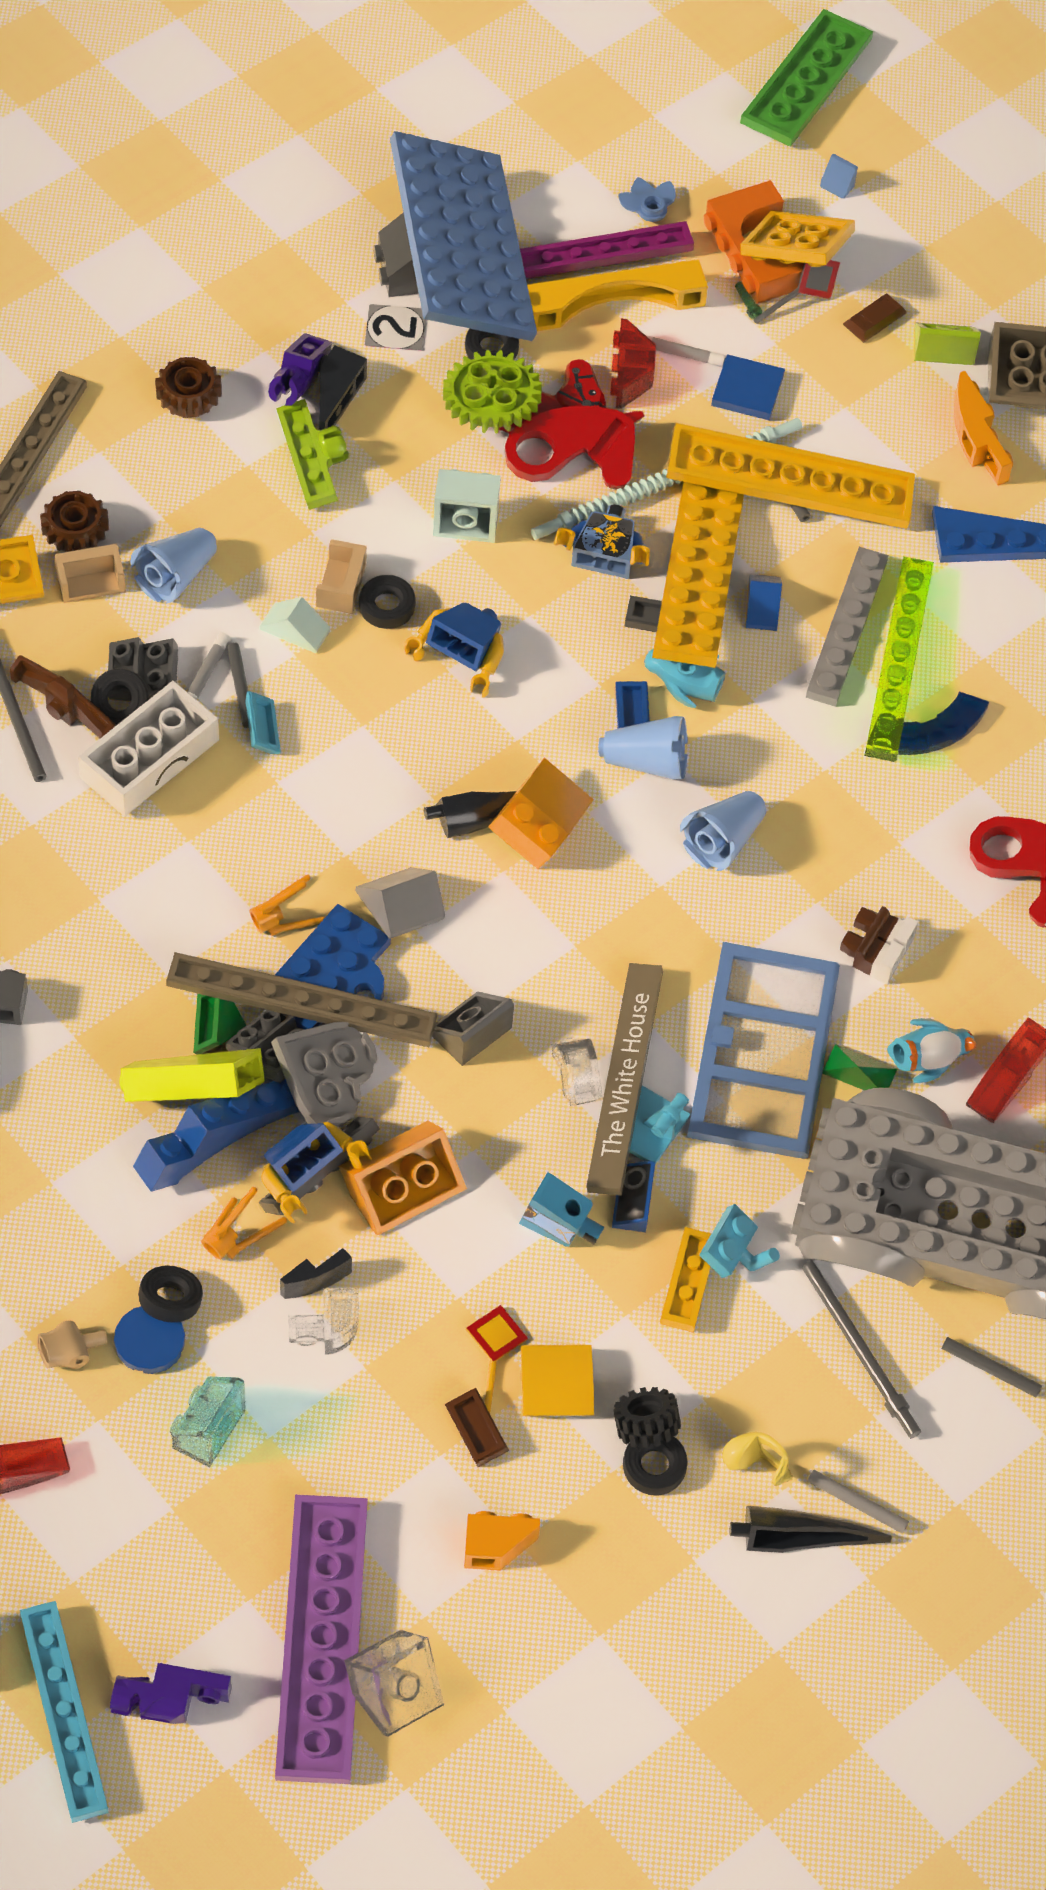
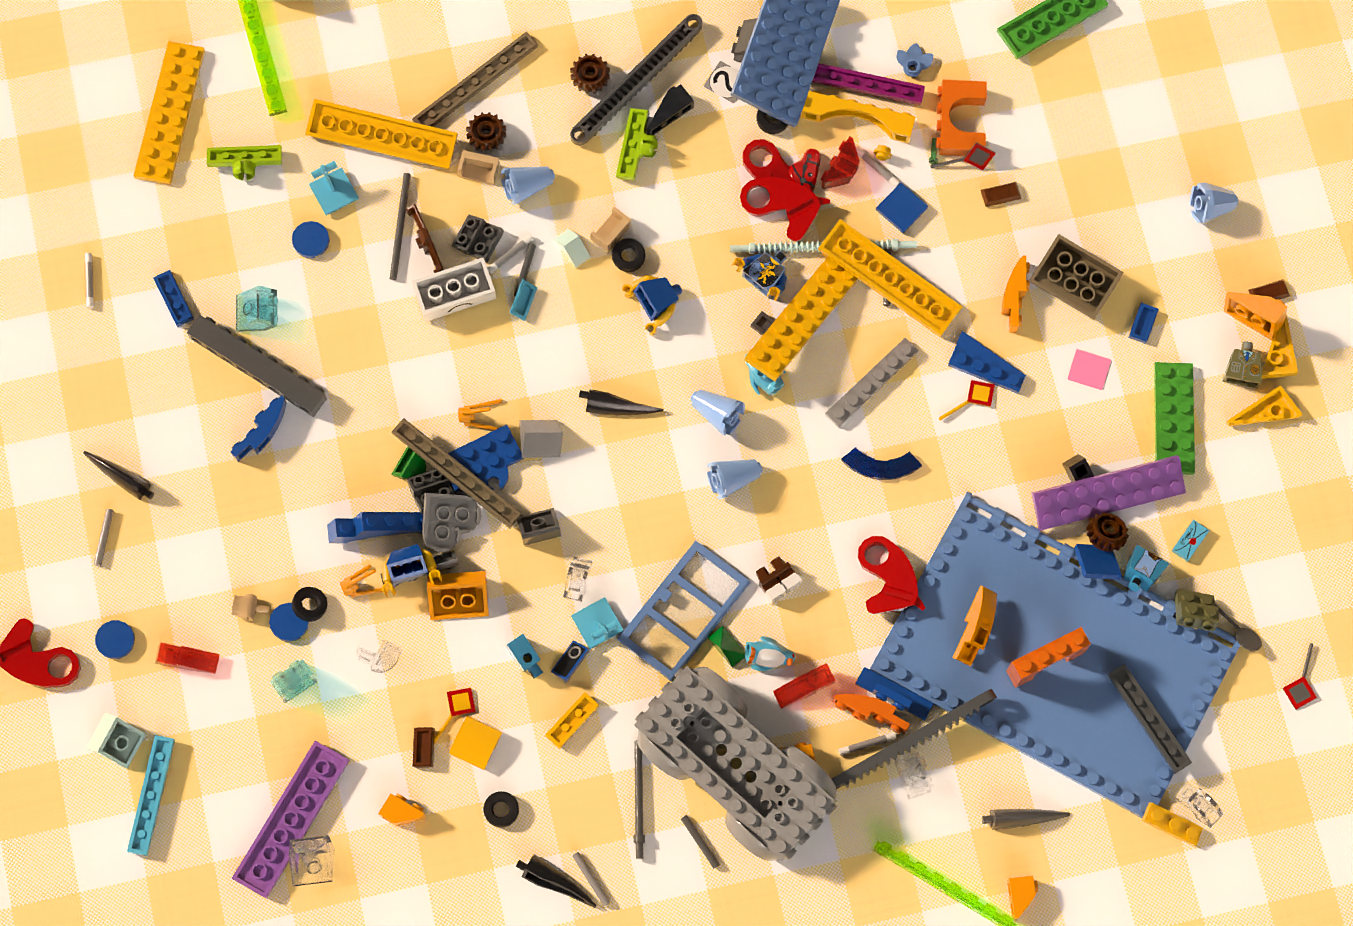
camera: 30 degrees right, 15 degrees up
(115, 677) = (446, 243): black tyre -> none
(169, 1694) = (201, 812): dark purple plate -> none
(193, 1076) = (378, 492): neon yellow slope -> none
(265, 360) = (636, 79): none -> dark grey gear
(298, 368) = (655, 88): dark purple plate -> none
(308, 1279) = (380, 628): black slope -> none
(466, 505) = (698, 217): light aqua brick -> none
(492, 391) = (751, 151): lime gear -> none
(541, 813) = (640, 421): light orange slope -> none
(624, 1079) = (599, 594): dark tan tile -> none
(631, 703) = (725, 379): blue tile -> none
(647, 1417) = (507, 793): black tyre -> none
(678, 326) = (882, 152): none -> yellow plate
(729, 1244) = (603, 711): medium azure plate -> none
(748, 1448) = (548, 826): light yellow piece -> none
(763, 602) = (833, 346): blue slope -> none
(797, 238) = (976, 129): yellow plate -> none
(839, 176) = (1031, 93): medium blue slope -> none
(899, 659) = (885, 417): clear neon green plate -> none
(946, 343) = (1031, 228): lime slope -> none
(1007, 579) = (979, 393): none -> piece

